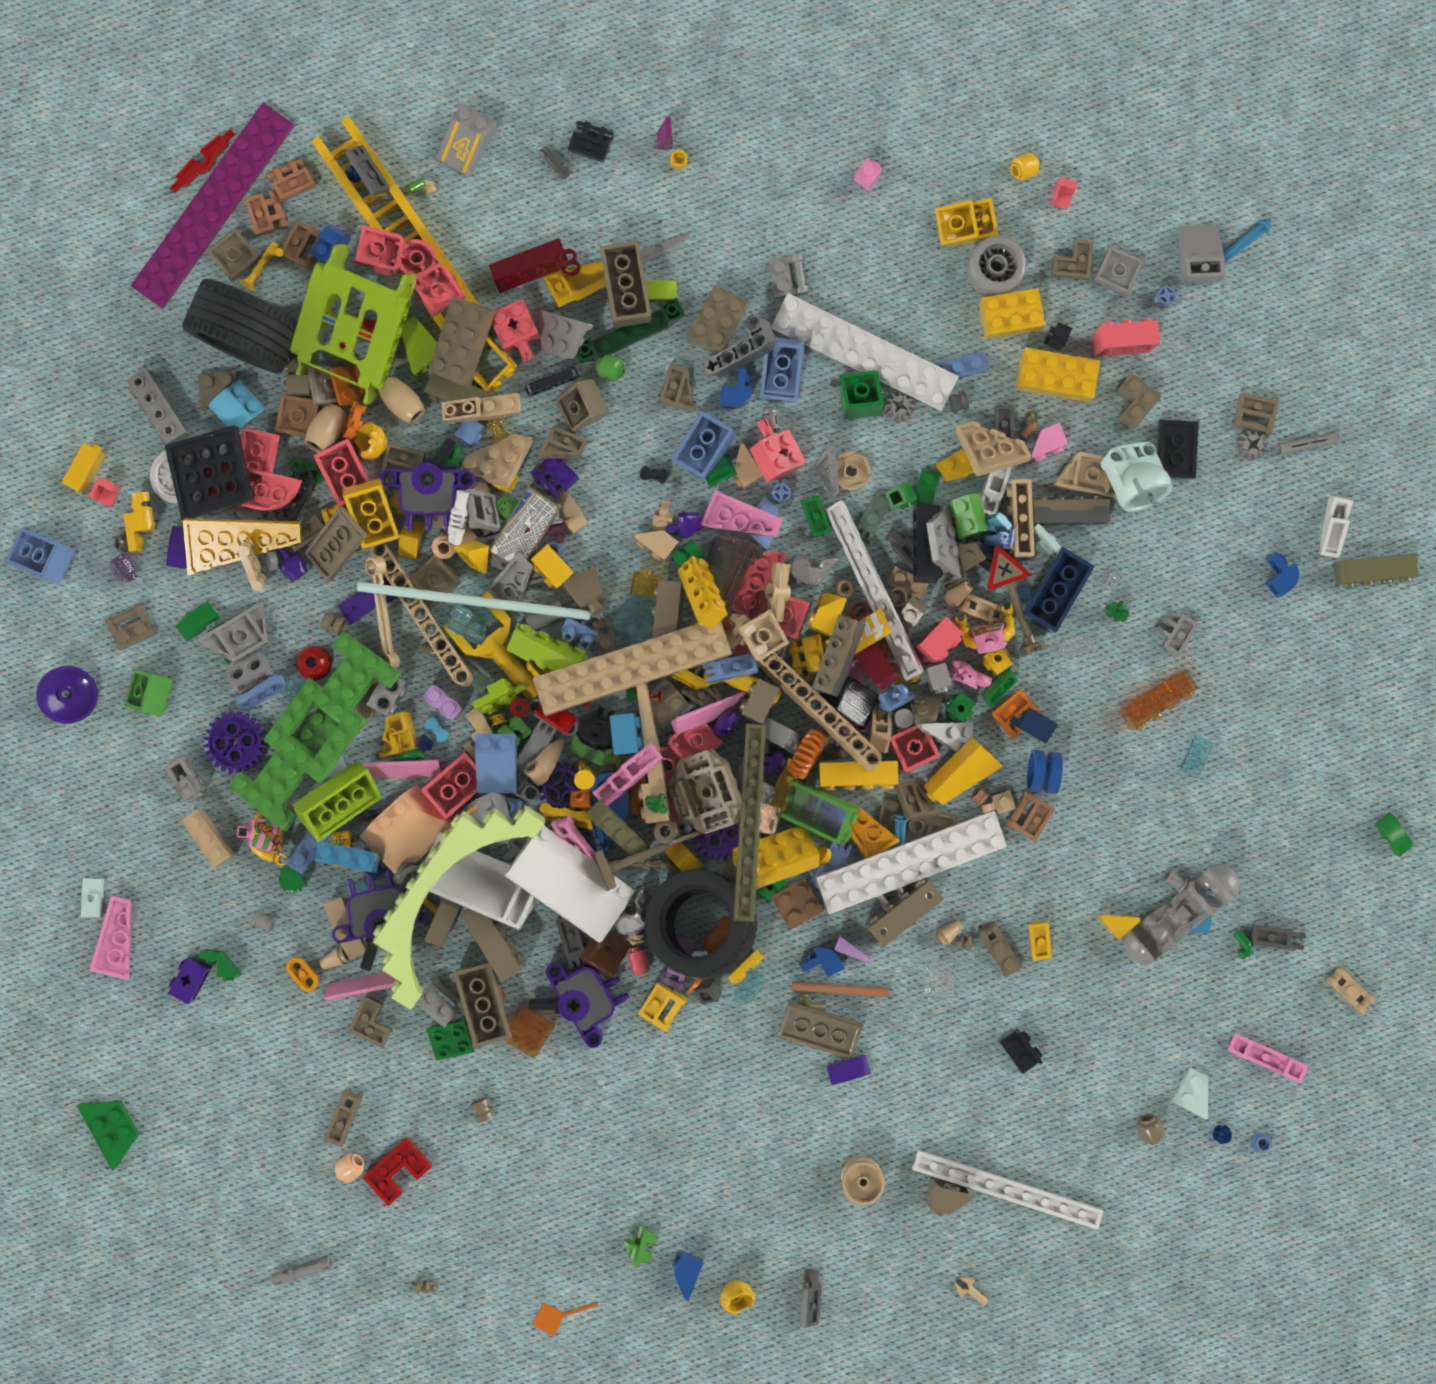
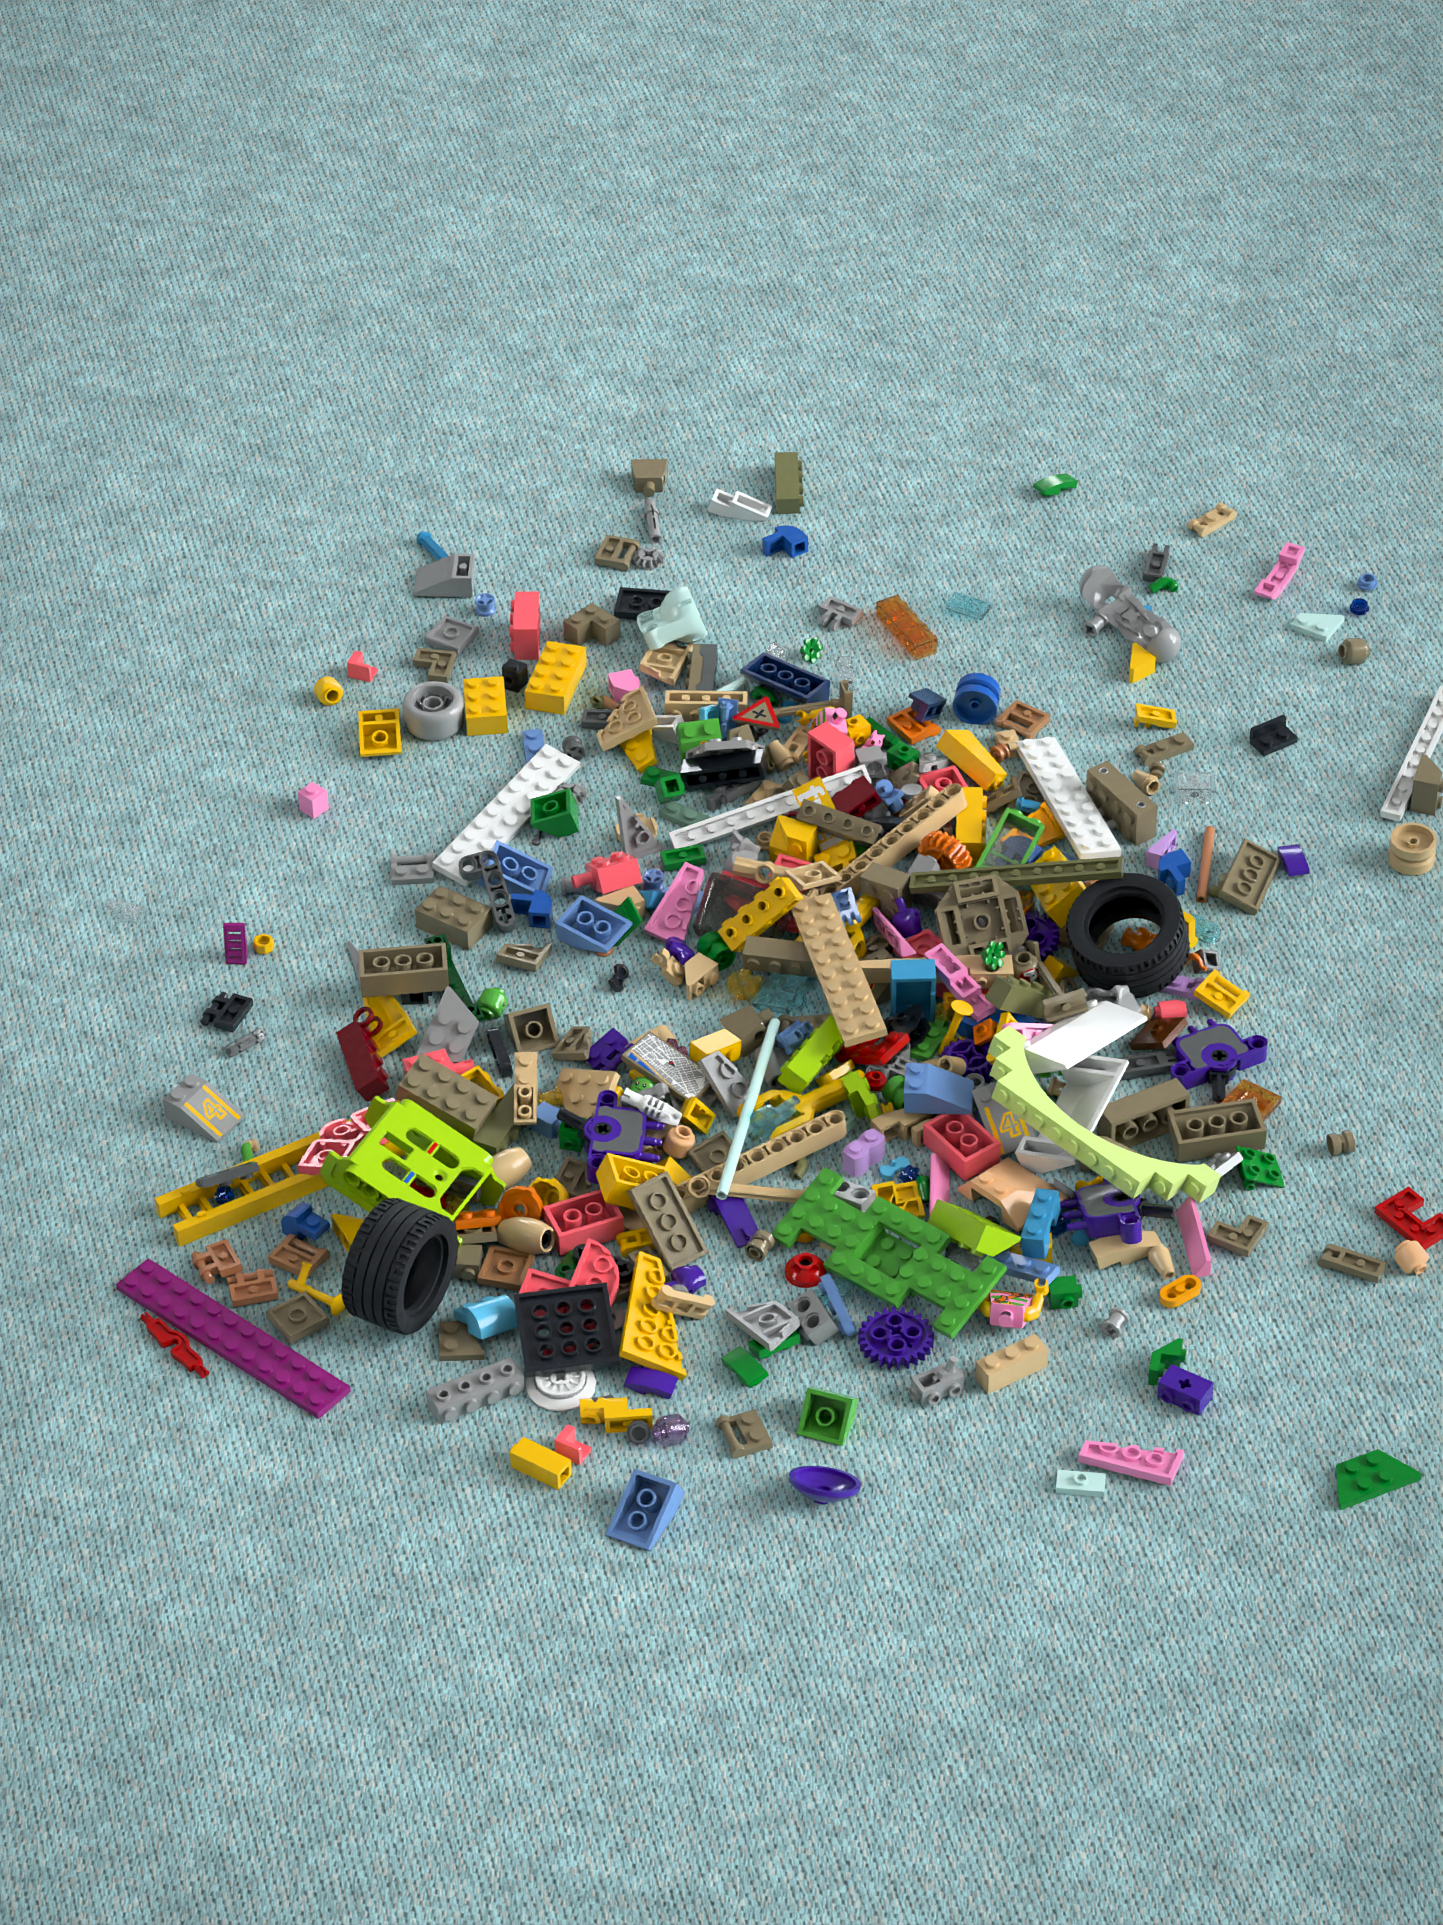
camera: 85 degrees left, 45 degrees down
(754, 494) = (652, 898): none -> dark azure slope
(1376, 433) = (649, 475): none -> dark tan torso

